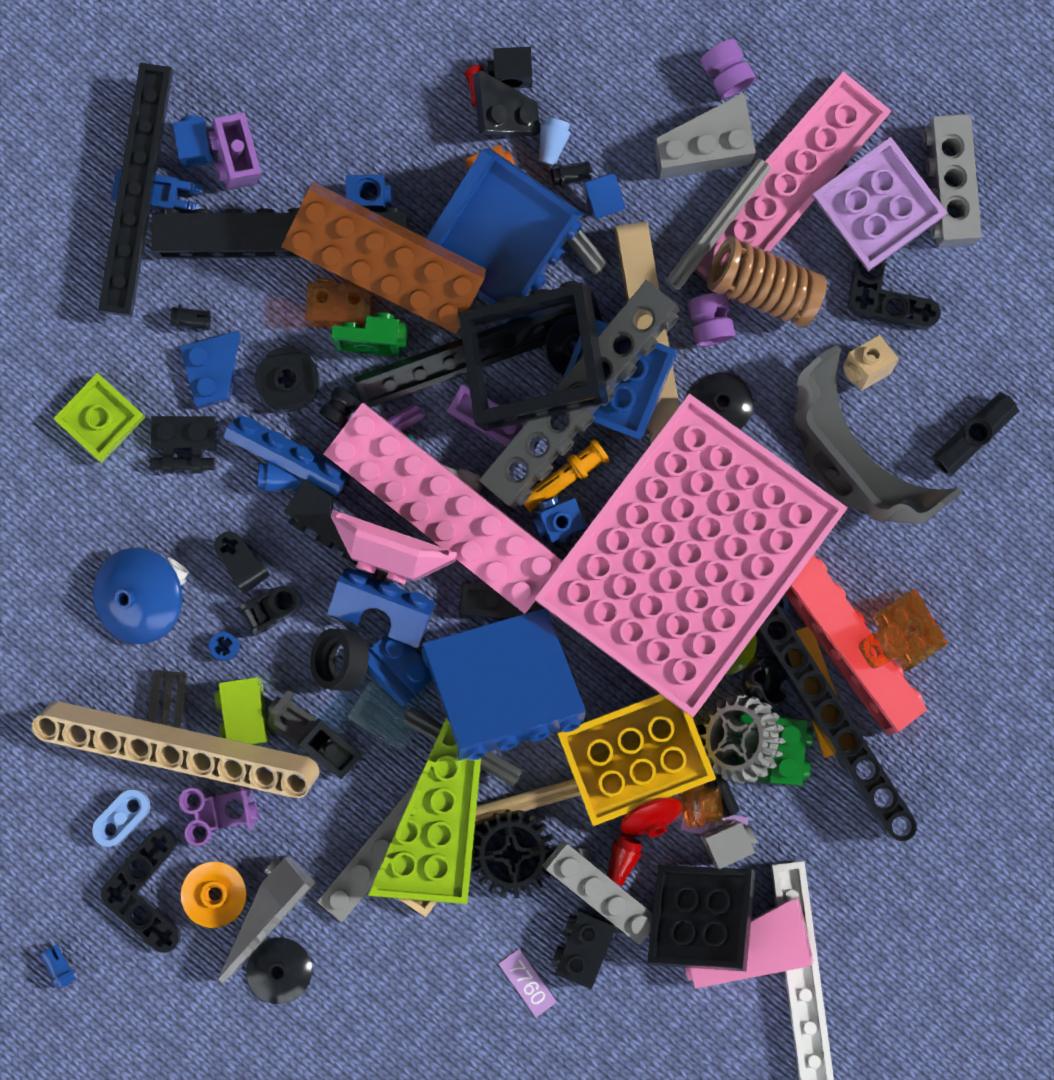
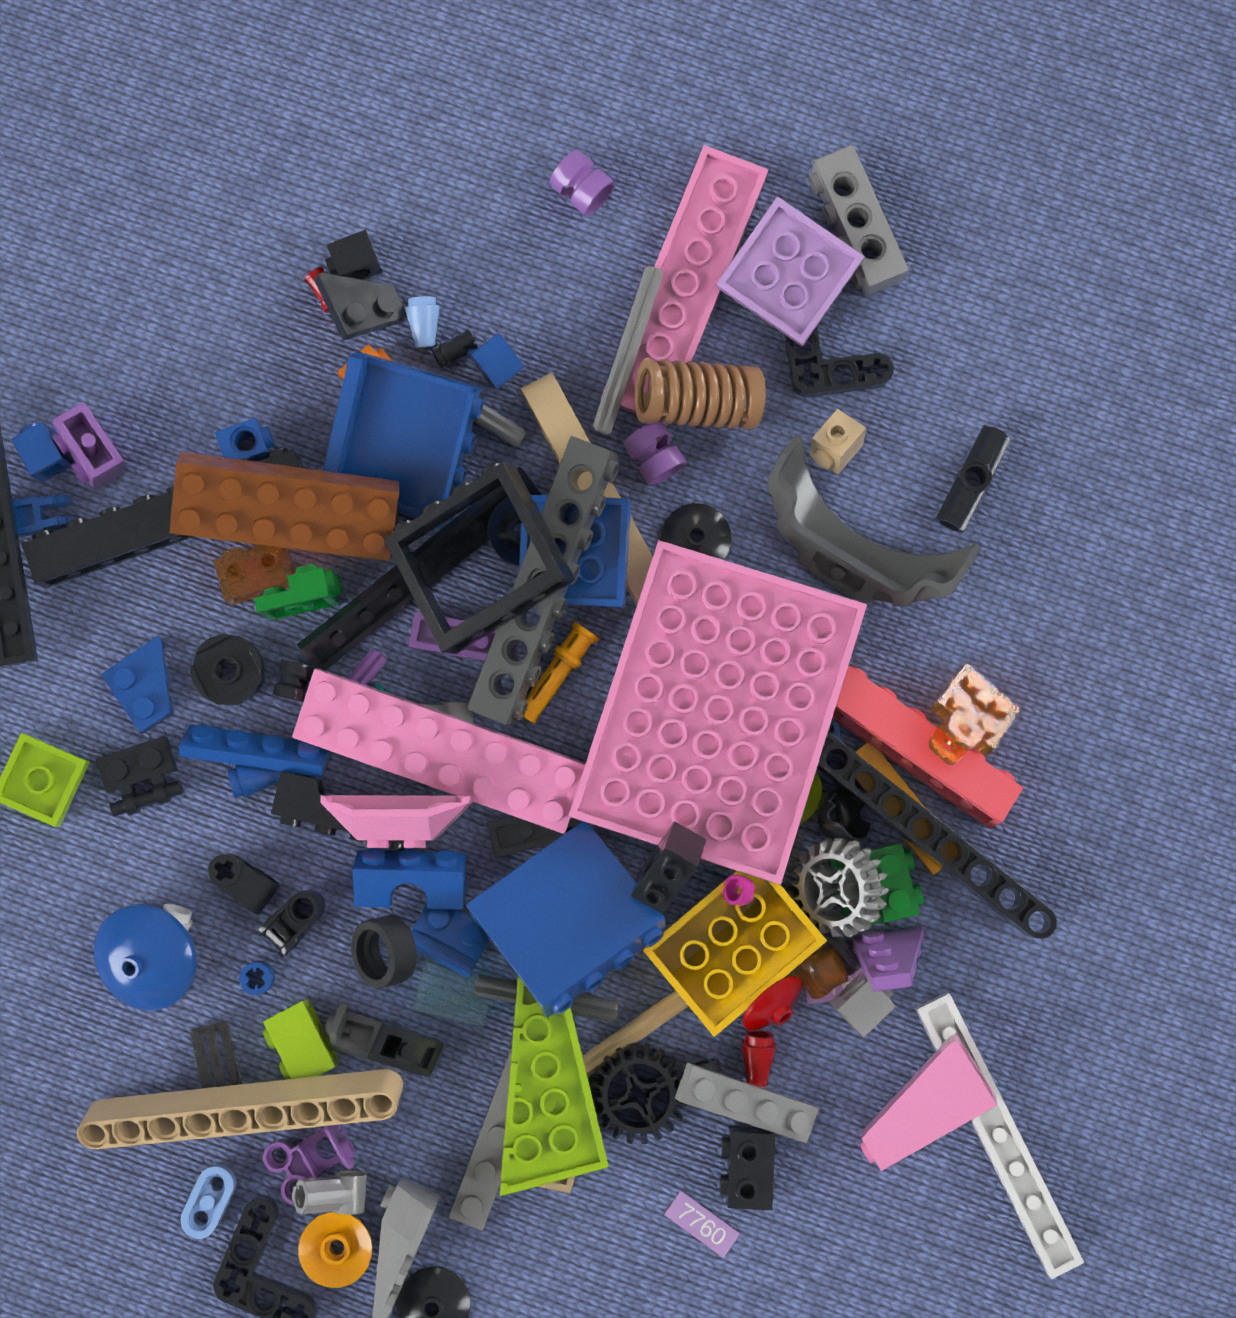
camera: 15 degrees left, 0 degrees up
(190, 318) = (101, 640): black pin -> none
(231, 848) = (338, 1193): none -> light grey piece
(557, 519) = (565, 720): blue brick -> none
(604, 670) = (668, 867): none -> black brick
(650, 706) = (731, 888): none -> dark pink hinge
(702, 918) = (863, 1093): black plate -> none
(708, 142) = (587, 267): light grey wedge -> none
(764, 811) = (889, 956): none -> medium lavender wing

